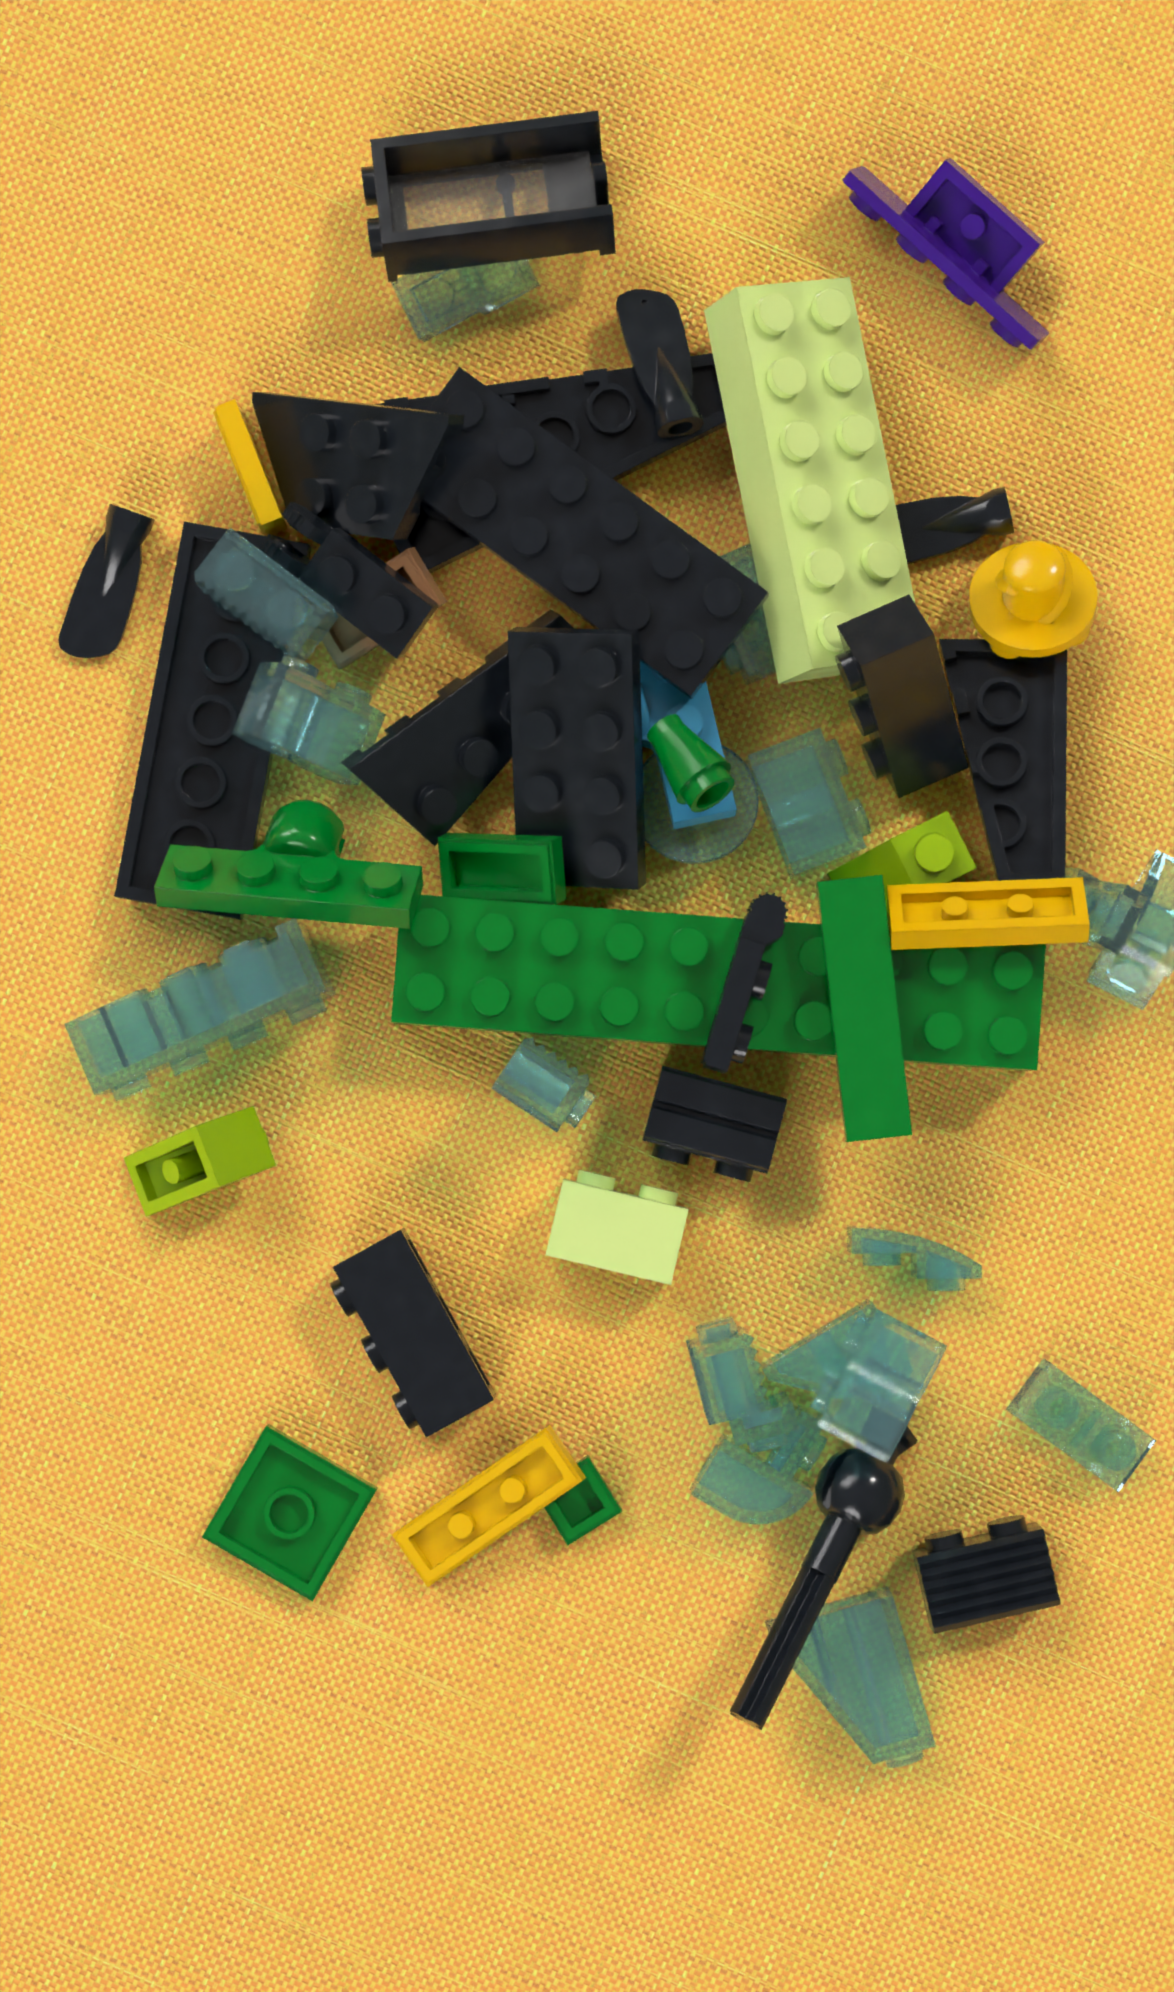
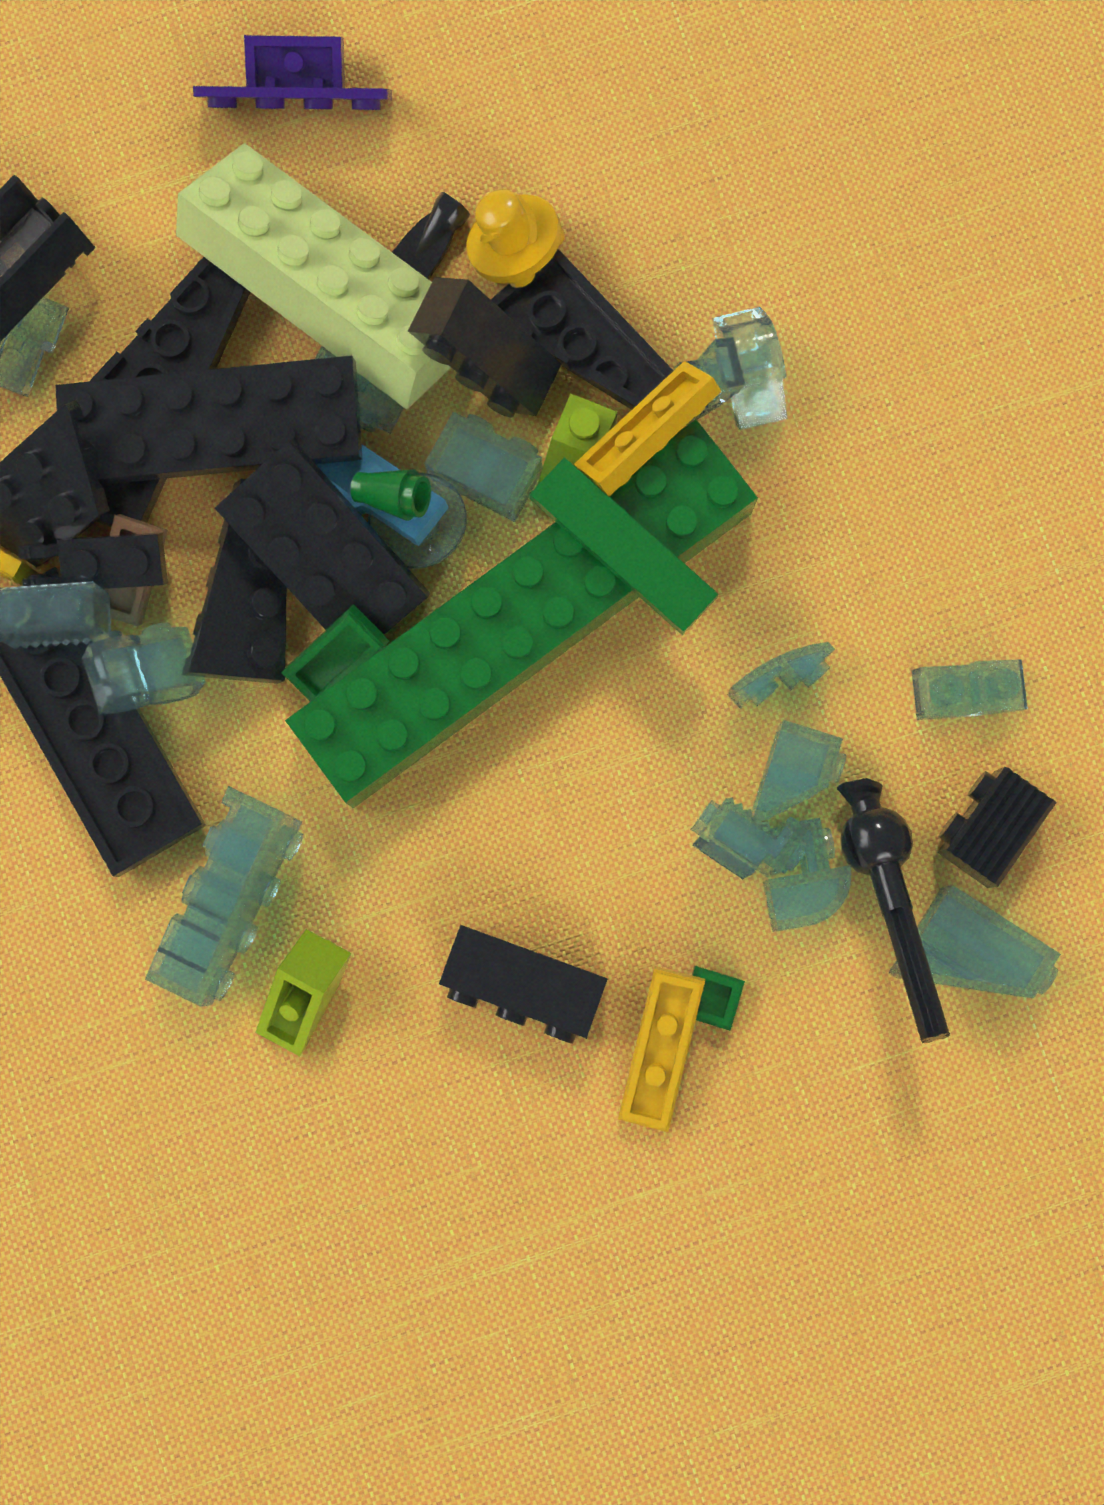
camera: 40 degrees left, 5 degrees down
(290, 1512) = (543, 1161): green tile -> none
(292, 876) = (206, 763): green plate -> none
(545, 1086) = (472, 760): clear light blue brick -> none
(617, 1228) = (592, 811): yellowish green brick -> none
(660, 359) = (176, 286): black piece -> none
(713, 1121) = (594, 698): black brick -> none
(744, 980) = (537, 588): black hinge -> none
(878, 1383) = (830, 762): clear light blue brick -> none

